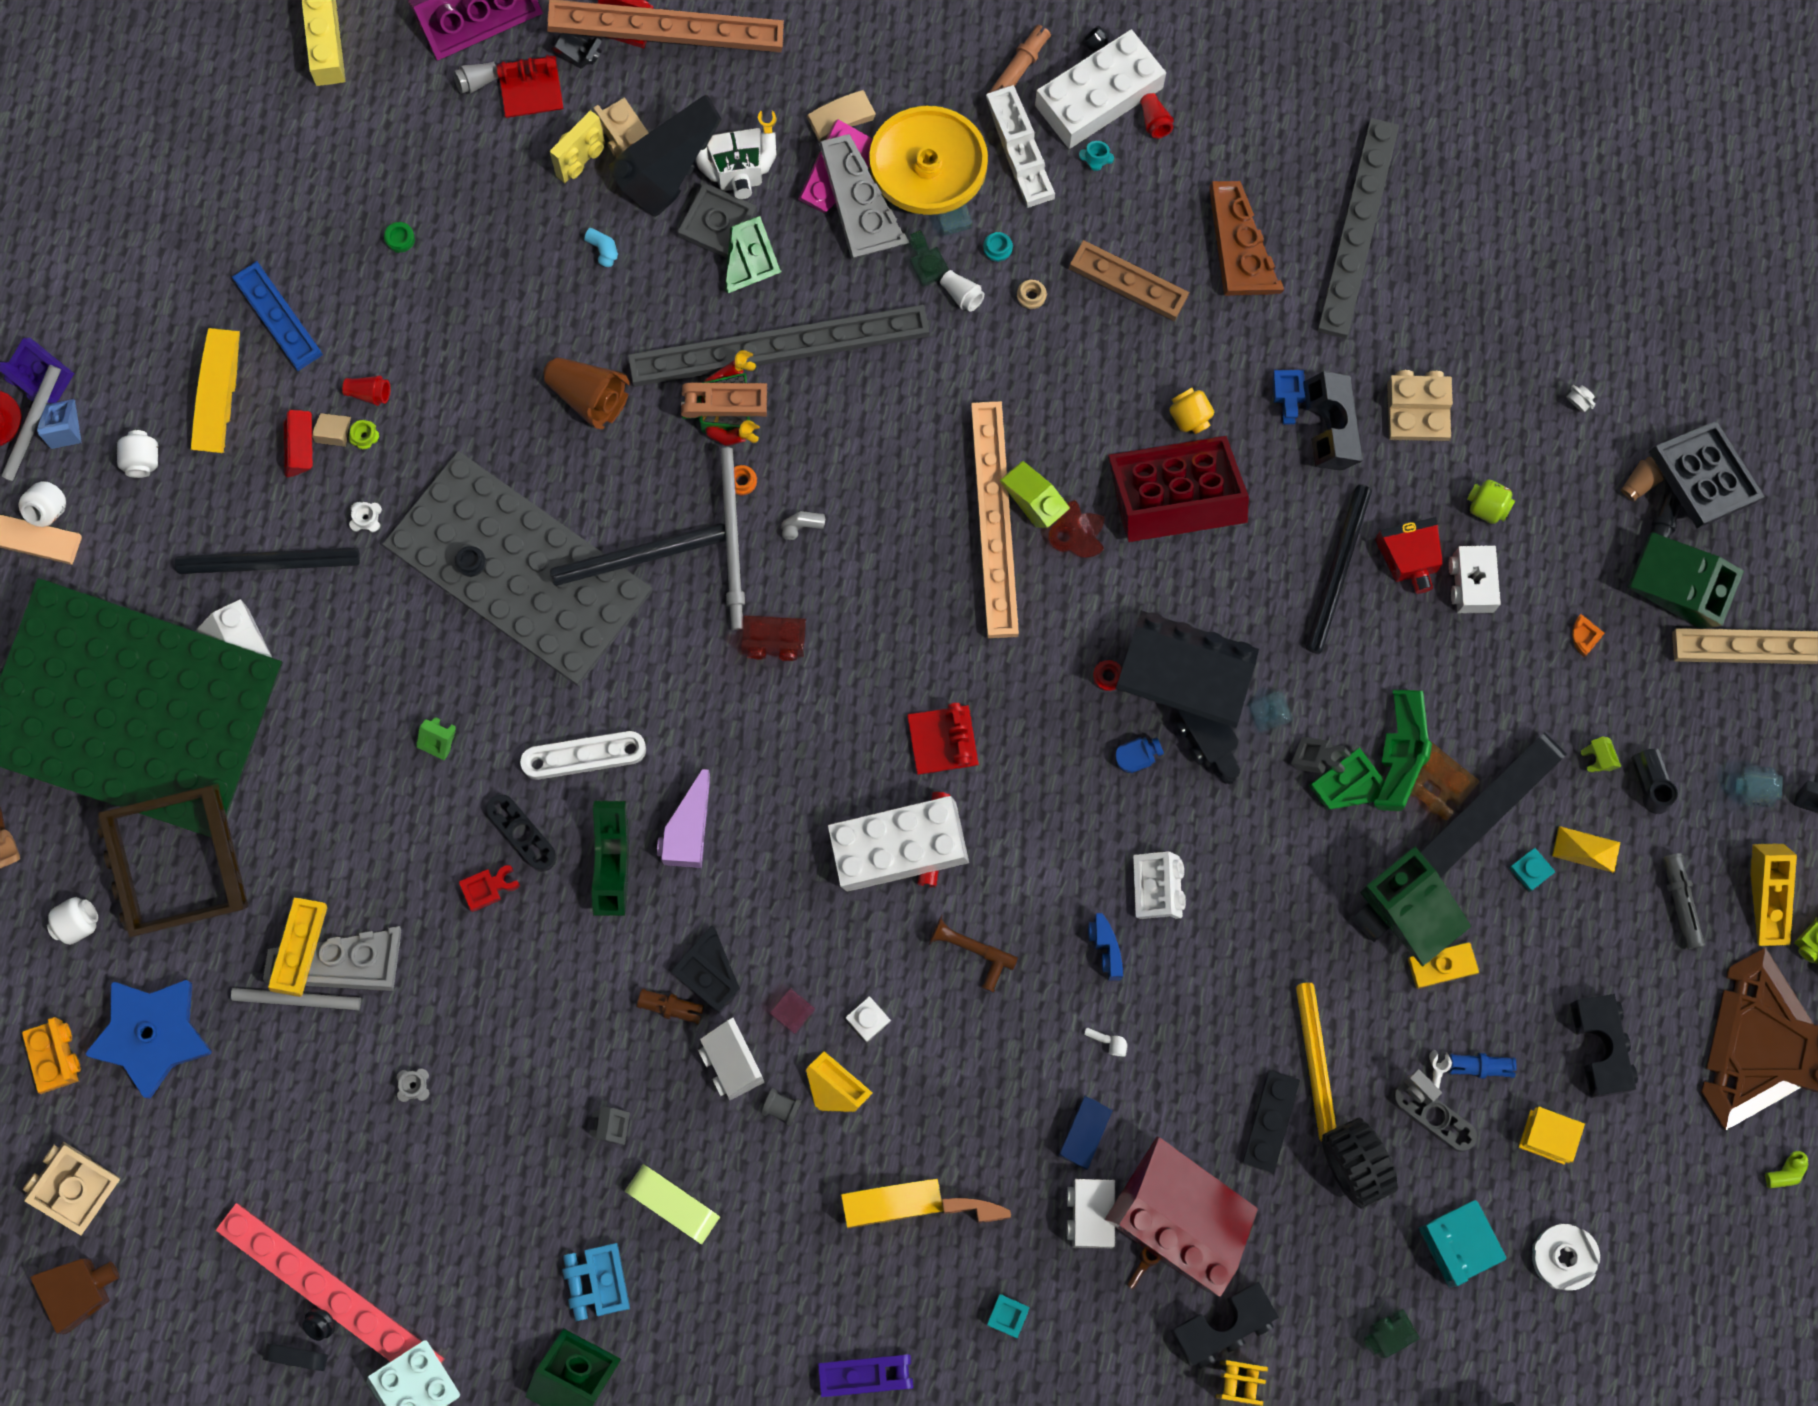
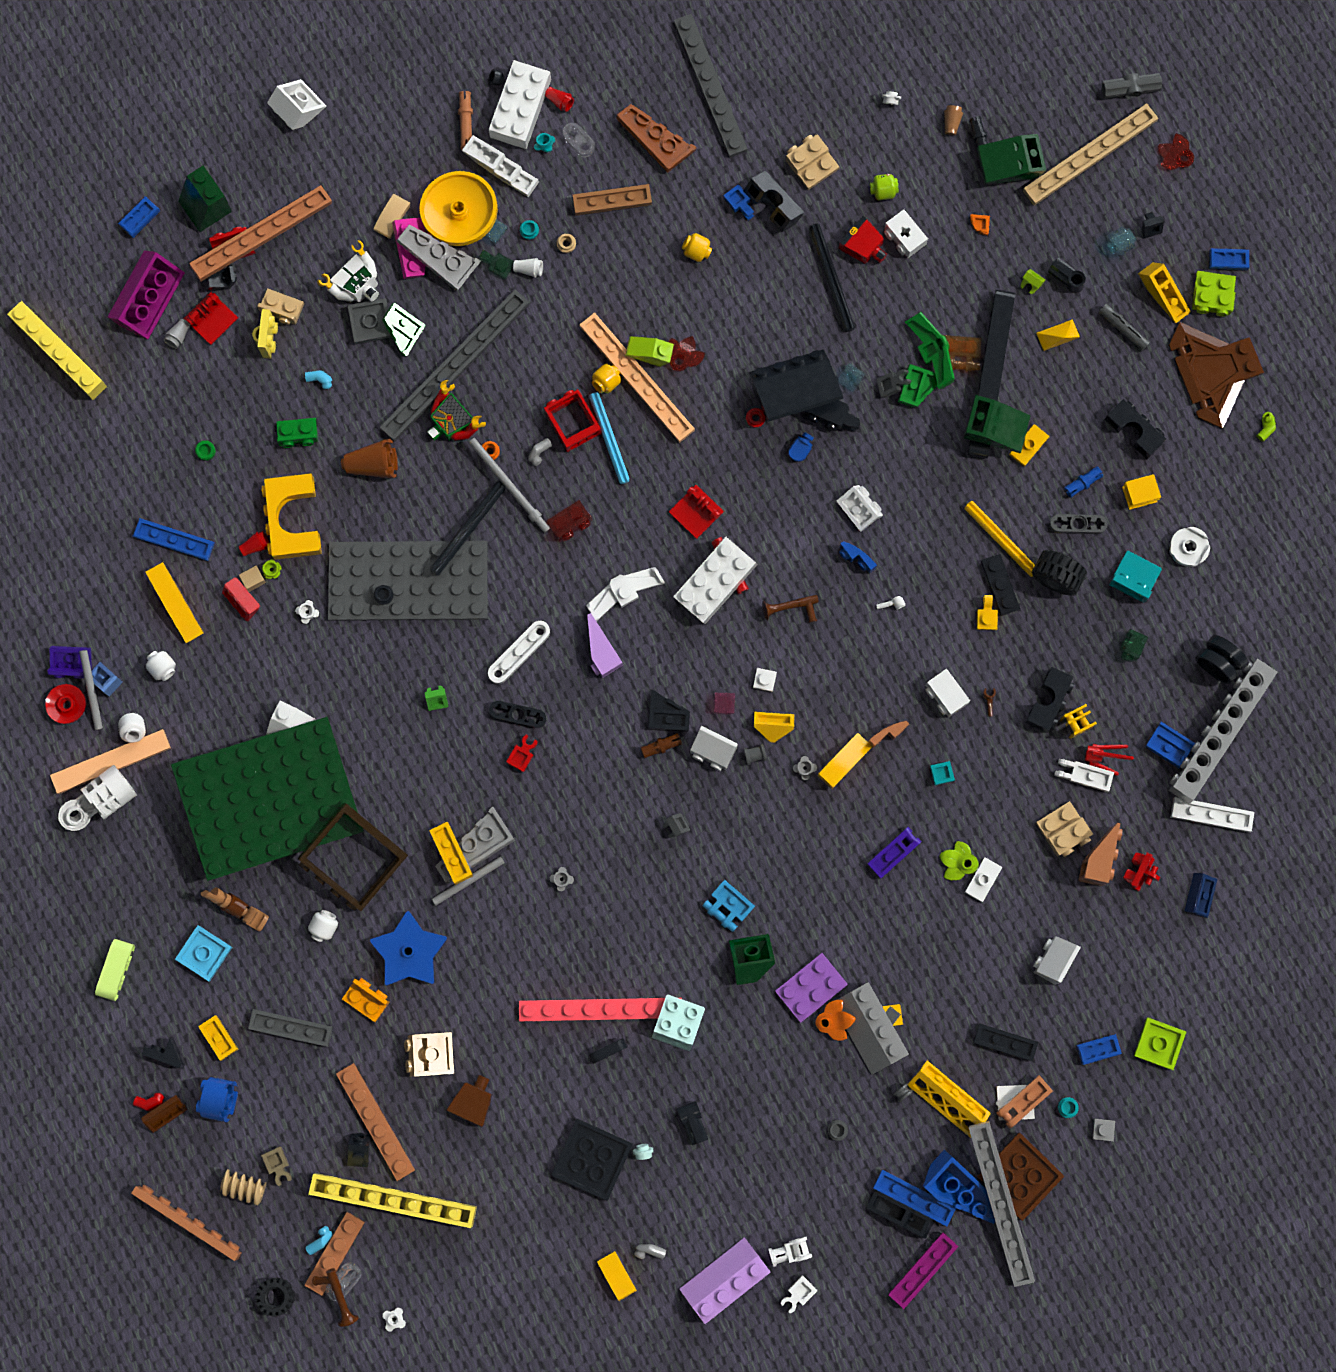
camera: 35 degrees left, 5 degrees up
(267, 560) = (274, 671): black axle -> none
(318, 1324) = (607, 1027): black plate -> none
(440, 348) = (277, 493): none -> yellow arch
(525, 291) = (297, 432): none -> green bracket
(611, 858) = (575, 694): dark green arch -> none
(659, 161) = (318, 311): black wedge -> none
(672, 1204) = (737, 840): yellowish green beam -> none
(724, 399) = (452, 414): nougat plate -> none
(774, 772) = (623, 590): none -> white plate
(825, 1168) = (798, 768): none -> light grey plate
(865, 542) = (584, 435): none -> red window
(902, 569) = (609, 438): none -> medium azure axle
(954, 492) = (606, 378): none -> yellow head
(1085, 1132) = (913, 657): dark blue slope -> none
(1142, 182) = (579, 140): none -> clear plate
(1178, 488) = (720, 293): dark red slope -> none
(1184, 1217) = (993, 662): slope -> none
(1221, 1151) = (986, 617): none -> yellow plate
(1422, 1088) = (1063, 514): light grey plate -> none
(1439, 1068) = (1063, 498): white hand -> none
(1532, 869) = (1038, 365): teal plate -> none
(1706, 474) = (983, 95): black plate -> none

